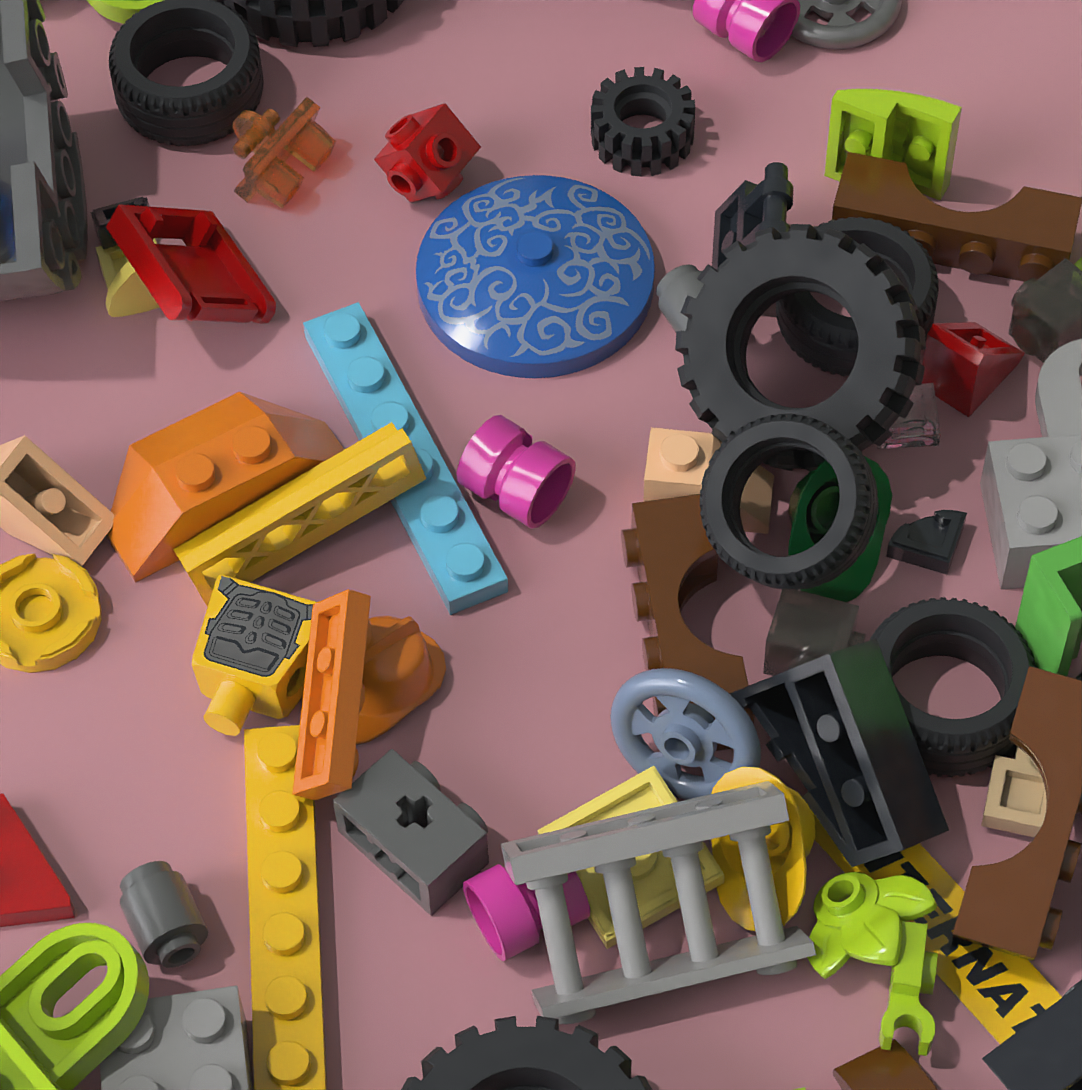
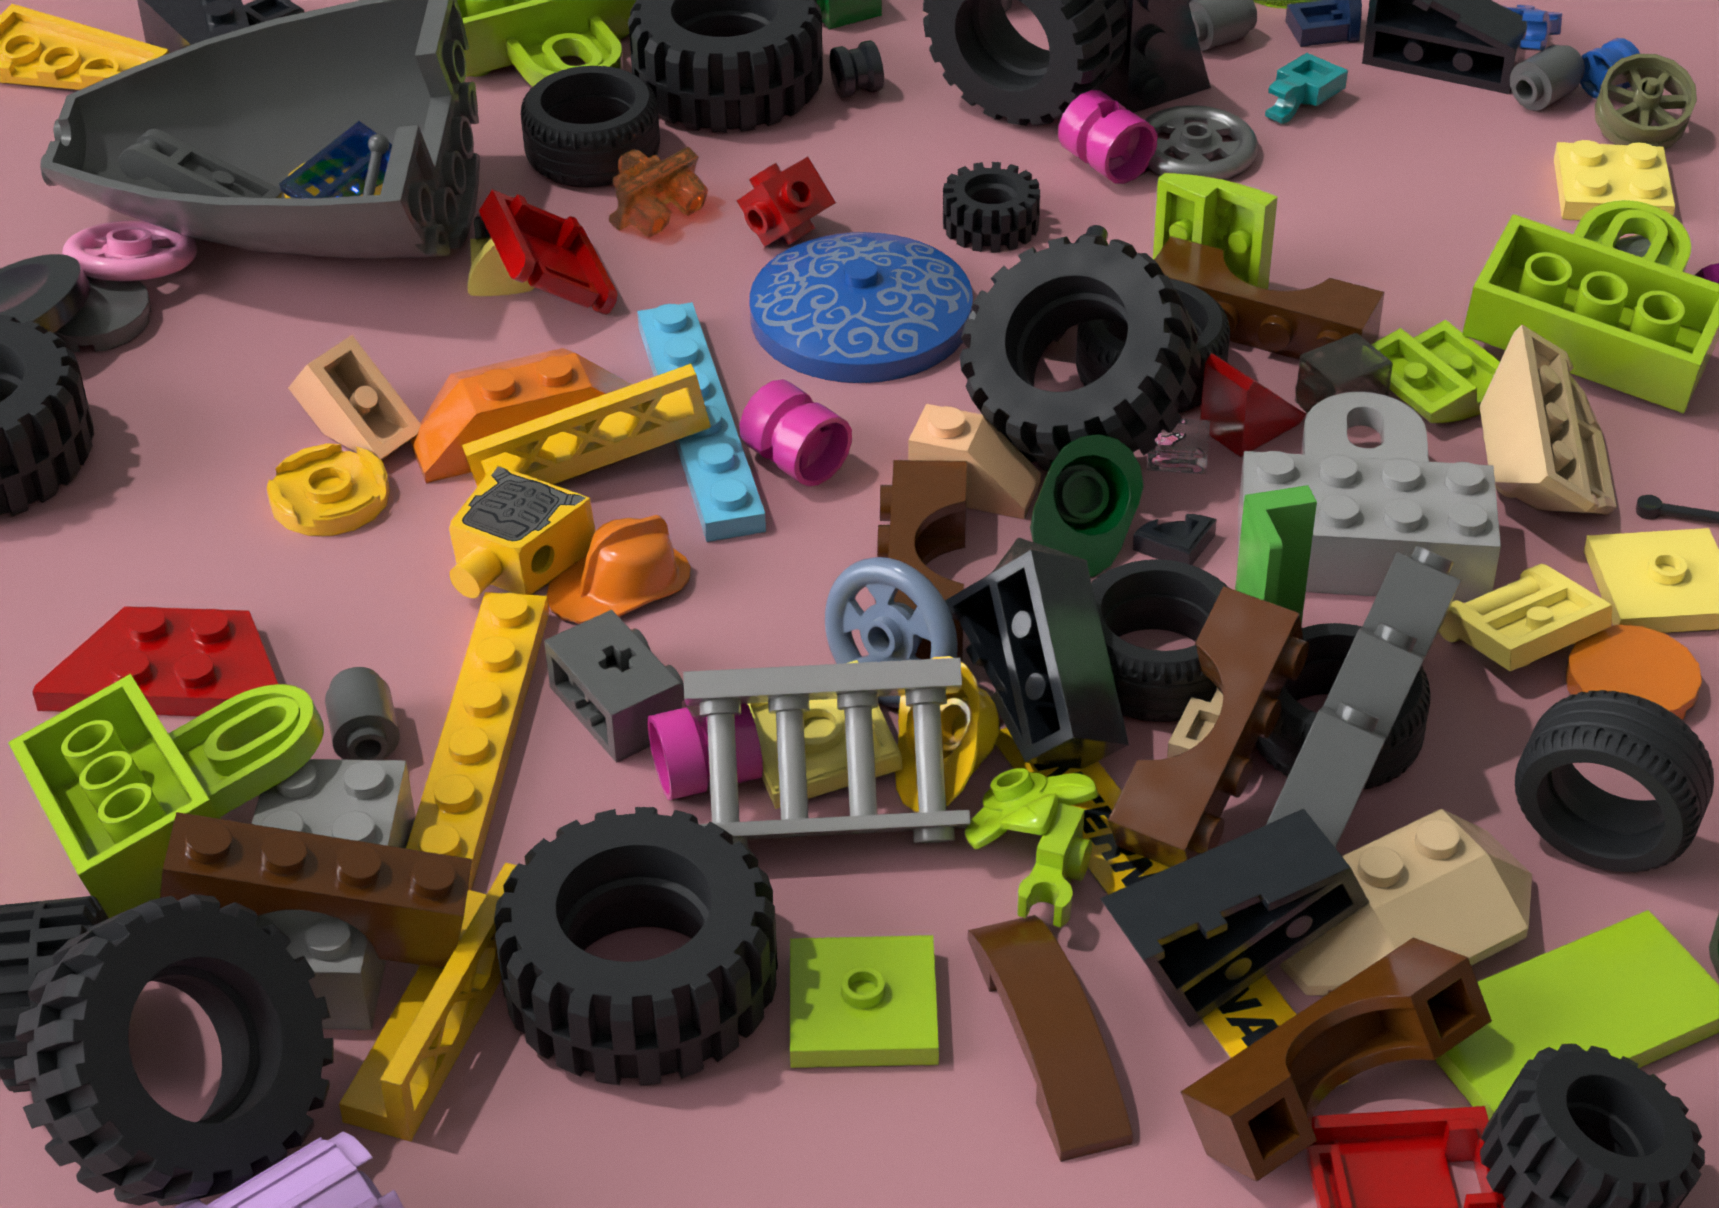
camera: 10 degrees right, 15 degrees down
(332, 695) = (568, 559): orange plate -> none
(733, 466) = (999, 421): black tyre -> none

